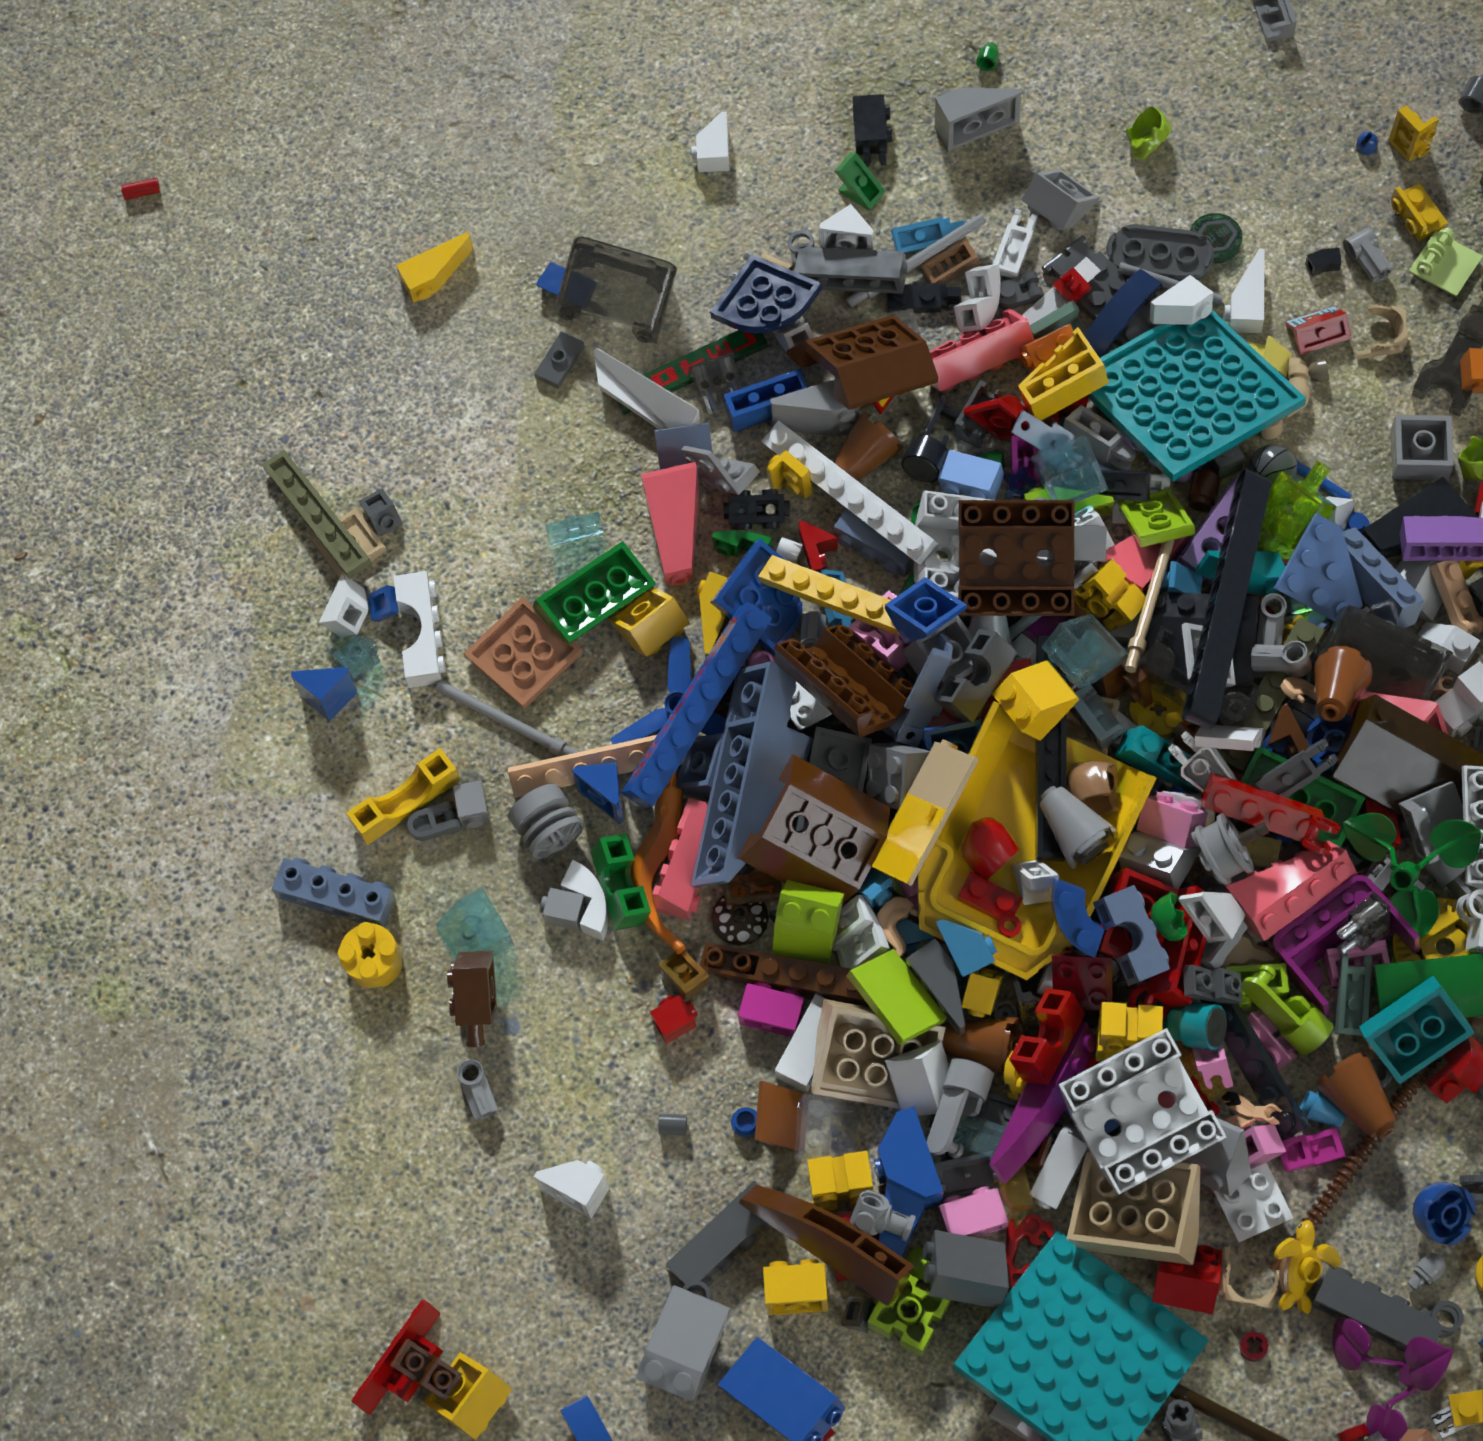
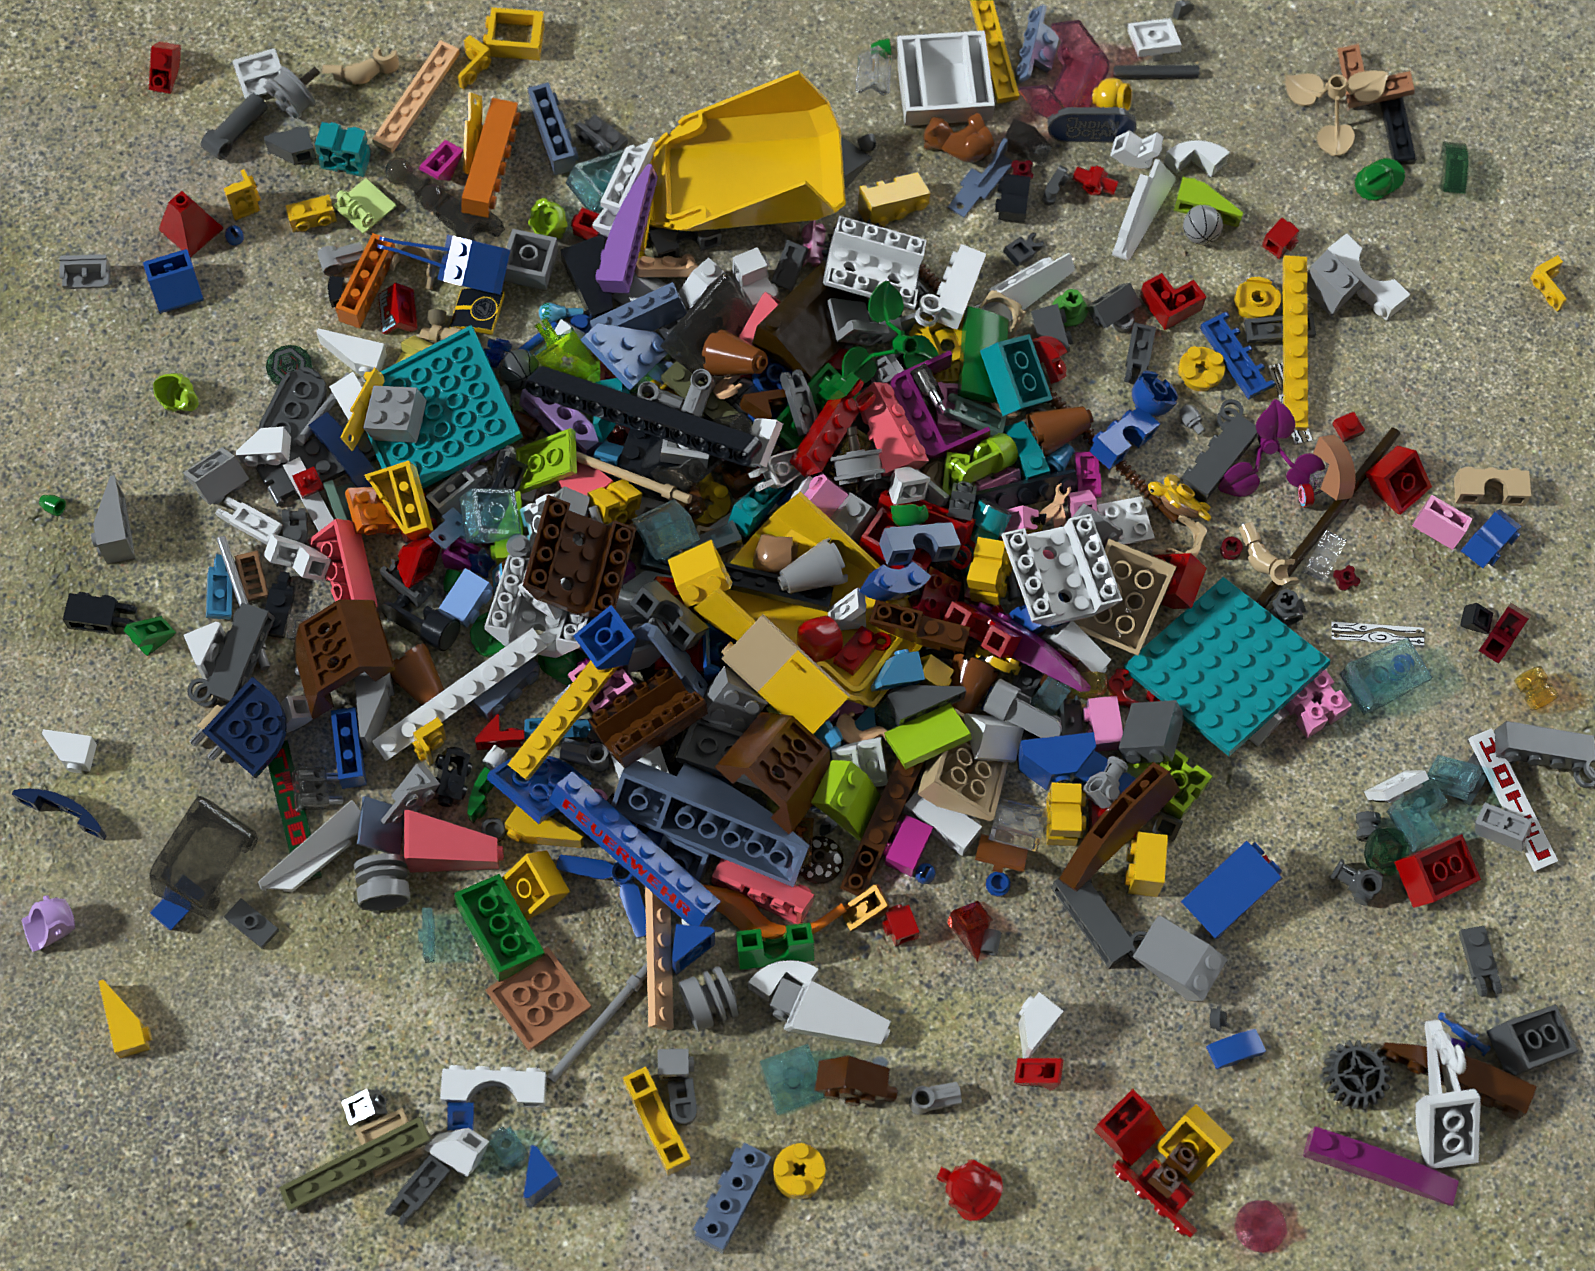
camera: 90 degrees left, 0 degrees up
(301, 581) = (419, 1188): none -> dark grey hinge
(378, 1145) = (972, 1189): none -> red helmet
(472, 1315) = (1130, 1127): none -> red slope
(522, 1201) = (1039, 1072): none -> red slope
(525, 176) = (48, 922): none -> lavender helmet
(546, 958) = (834, 1017): none -> white slope
(619, 466) = (382, 882): none -> light grey wheel
(623, 1404) = (1218, 1018): none -> dark grey plate
(640, 181) = (37, 797): none -> dark blue slope
(688, 1095) = (969, 926): none -> clear red slope
(706, 564) = (494, 827): none -> dark grey tile
(744, 1043) = (930, 875): none -> blue hinge
(1029, 959) = (919, 629): none -> reddish brown slope
(1103, 235) = (266, 447): none -> white slope
(1168, 314) = (359, 409): none -> yellow piece
(1170, 346) = (395, 414): none -> light grey brick
(1242, 1389) = (1263, 560): none -> tan piece
(1285, 95) = (173, 281): none -> blue slope
(1298, 445) = (497, 350): none -> clear blue piece
(1307, 1070) = (1030, 456): none -> teal slope
(1327, 806) = (836, 386): none -> green slope
(1341, 283) = (364, 282): none -> orange brick
(1341, 411) = (477, 309): none -> black slope
(1362, 491) = (555, 312): none -> medium azure piece
(1366, 93) = (188, 224): none -> red slope
(1388, 381) = (465, 262): none -> blue slope
(1392, 1195) = (1112, 445): none -> blue arch

